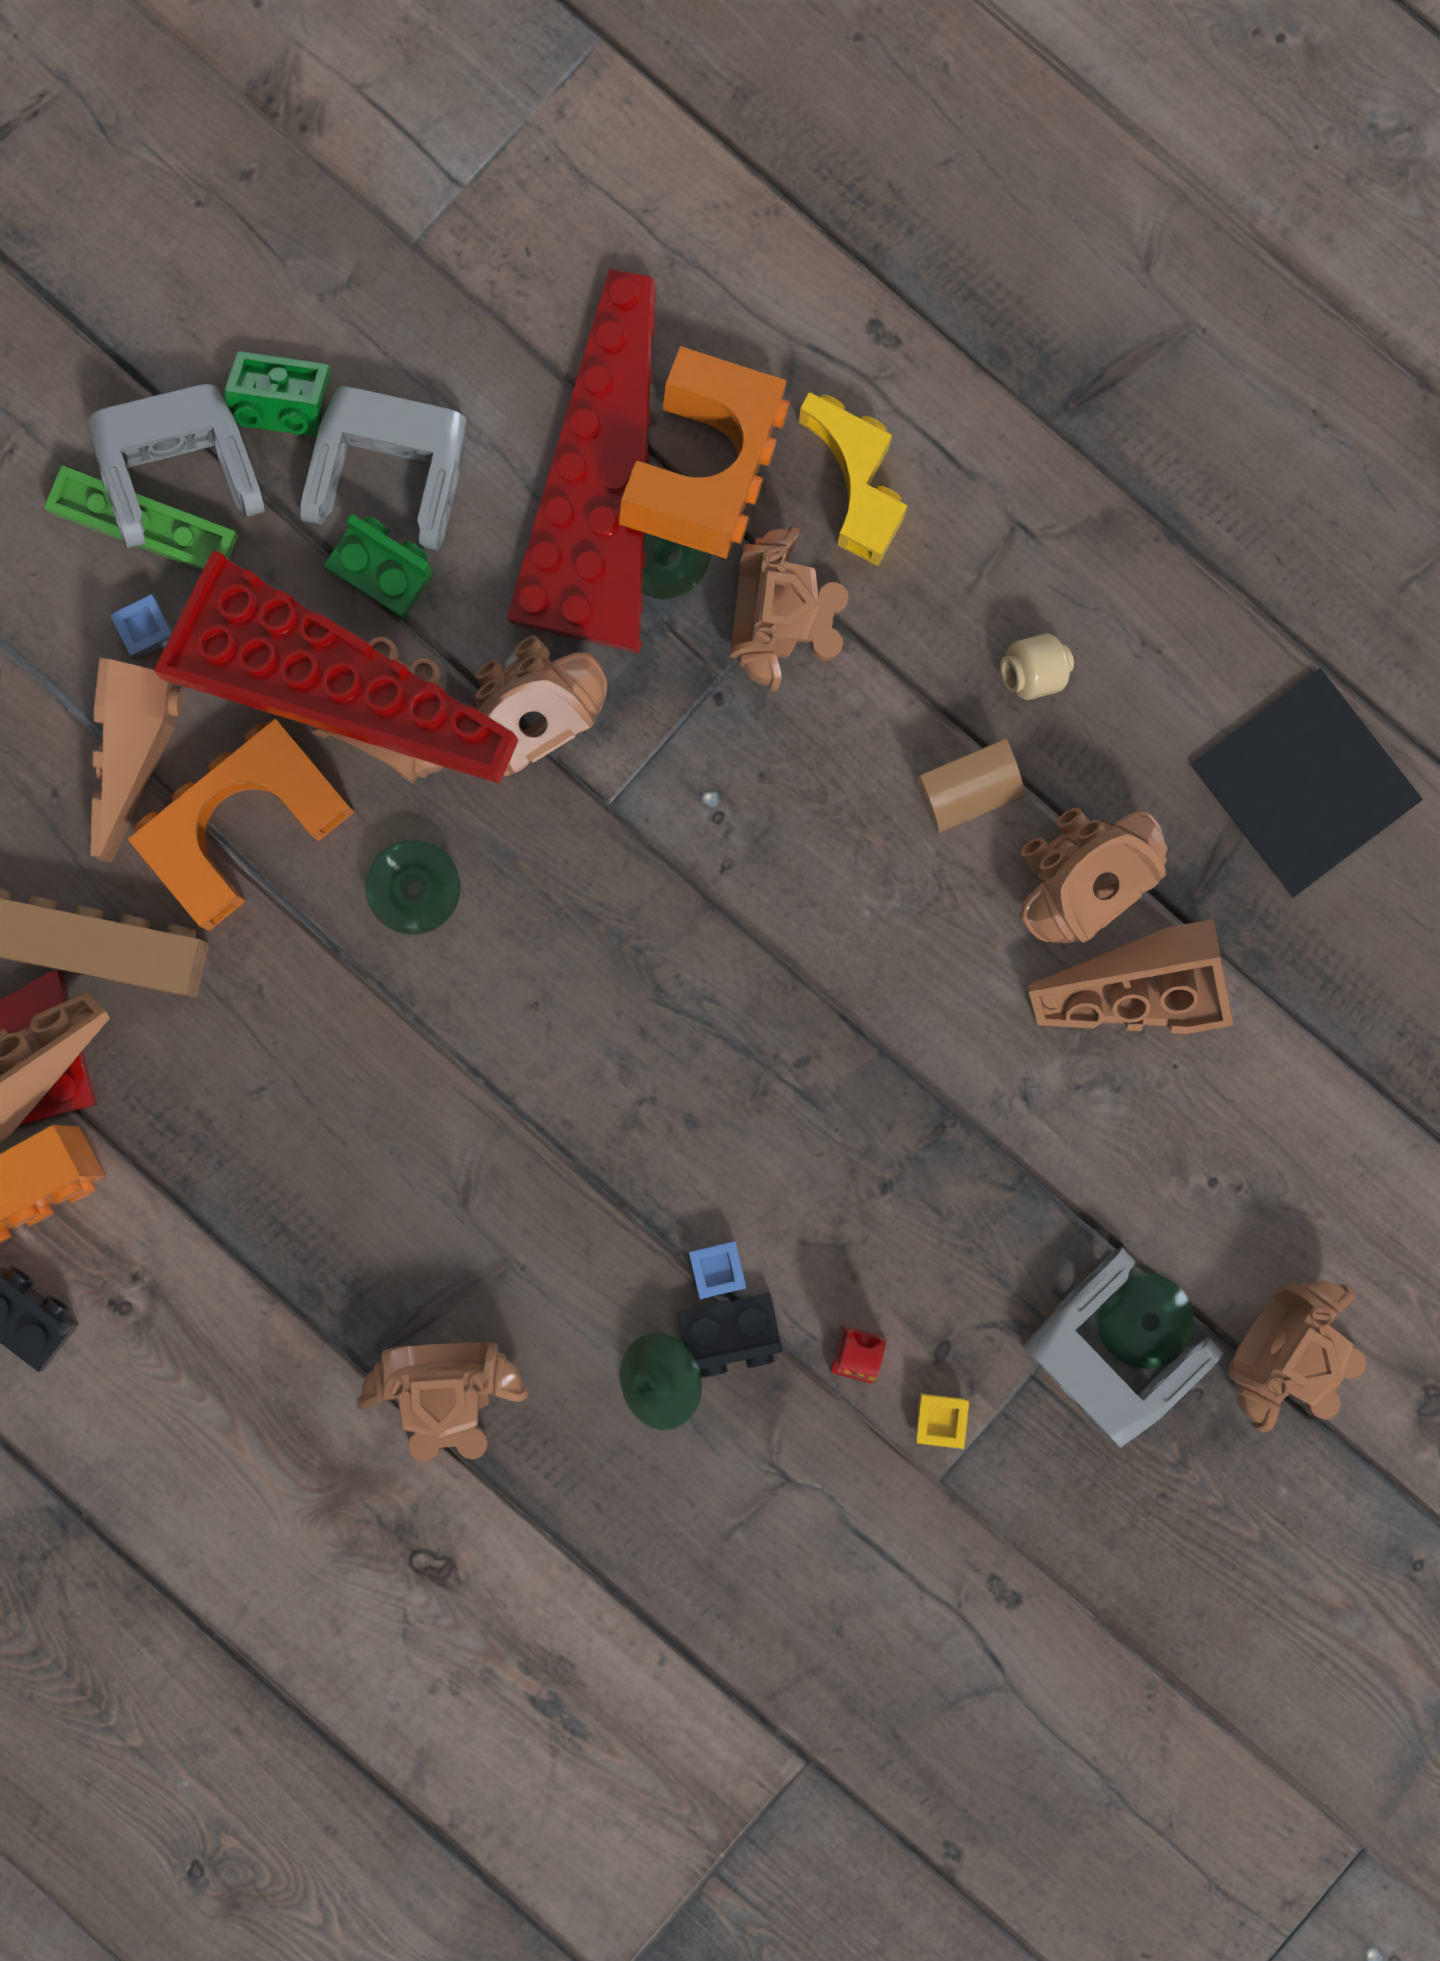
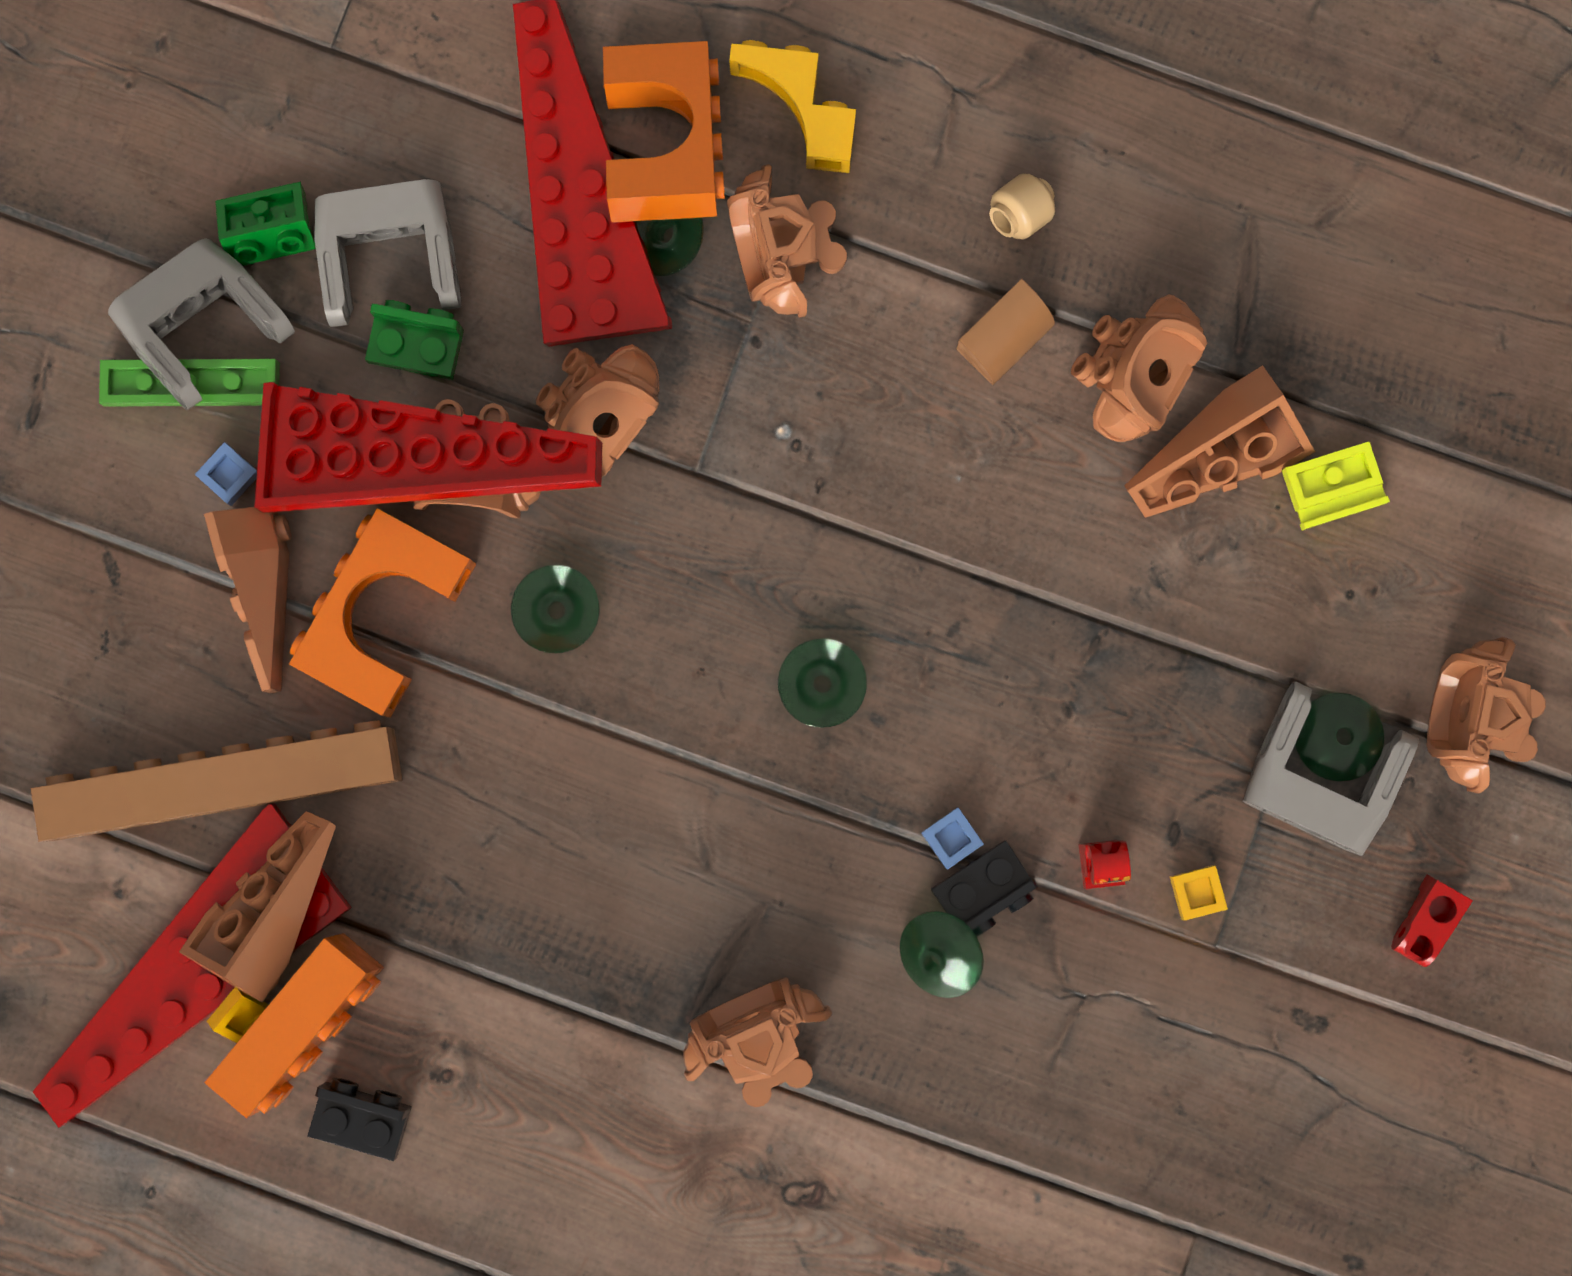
camera: 15 degrees left, 0 degrees up
(639, 1040) = (825, 659): none -> clear green dish
(1162, 1540) = (1430, 921): none -> red leg
(1240, 1067) = (1335, 485): none -> neon yellow plate
(1306, 782) = (1294, 217): black piece -> none

